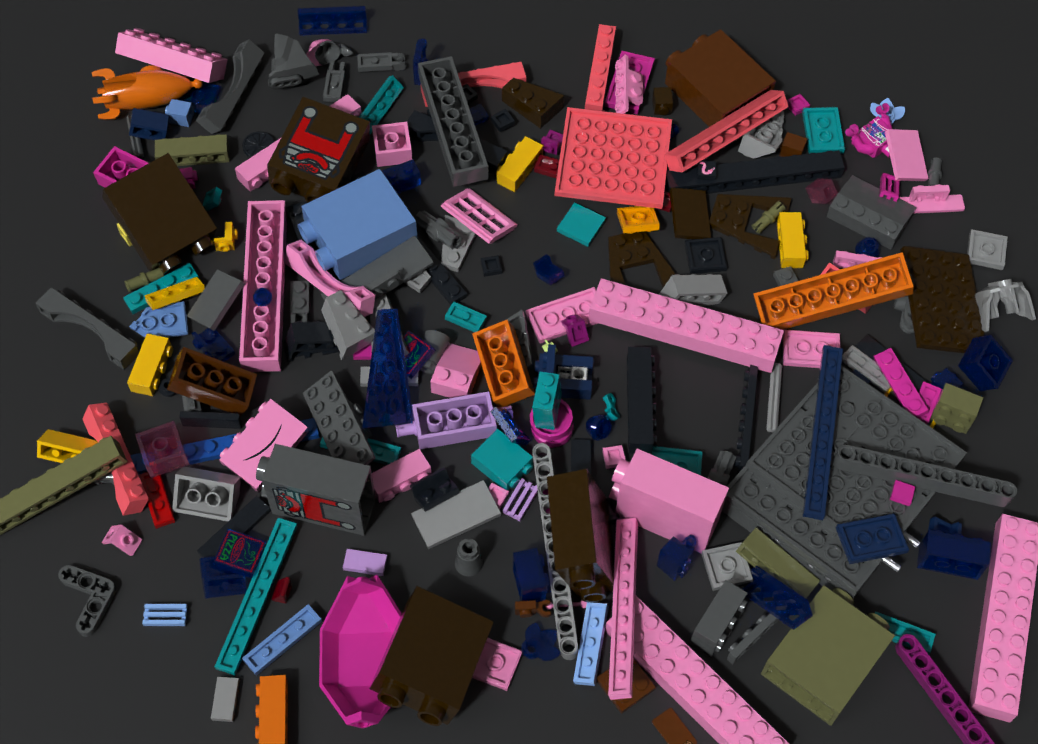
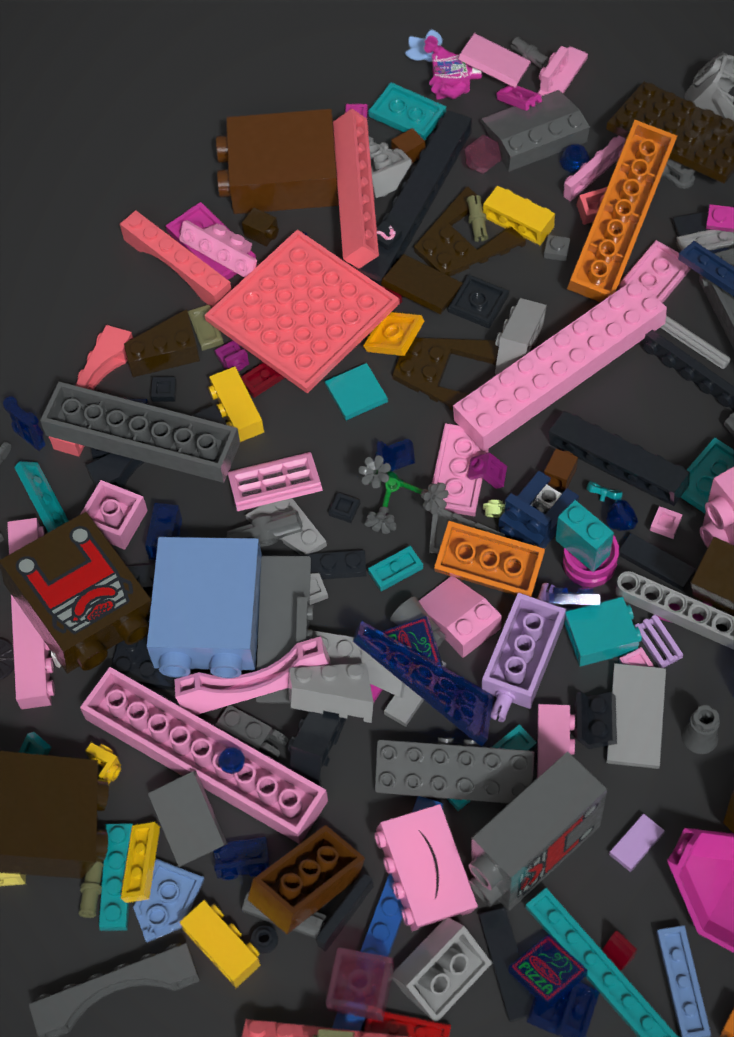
camera: 50 degrees left, 0 degrees up
(521, 304) = (376, 472): none -> dark grey plant
(558, 120) = (207, 334): none -> olive tile
(608, 371) = (561, 469): none -> reddish brown brick
(987, 249) = (646, 64): light grey plate -> none

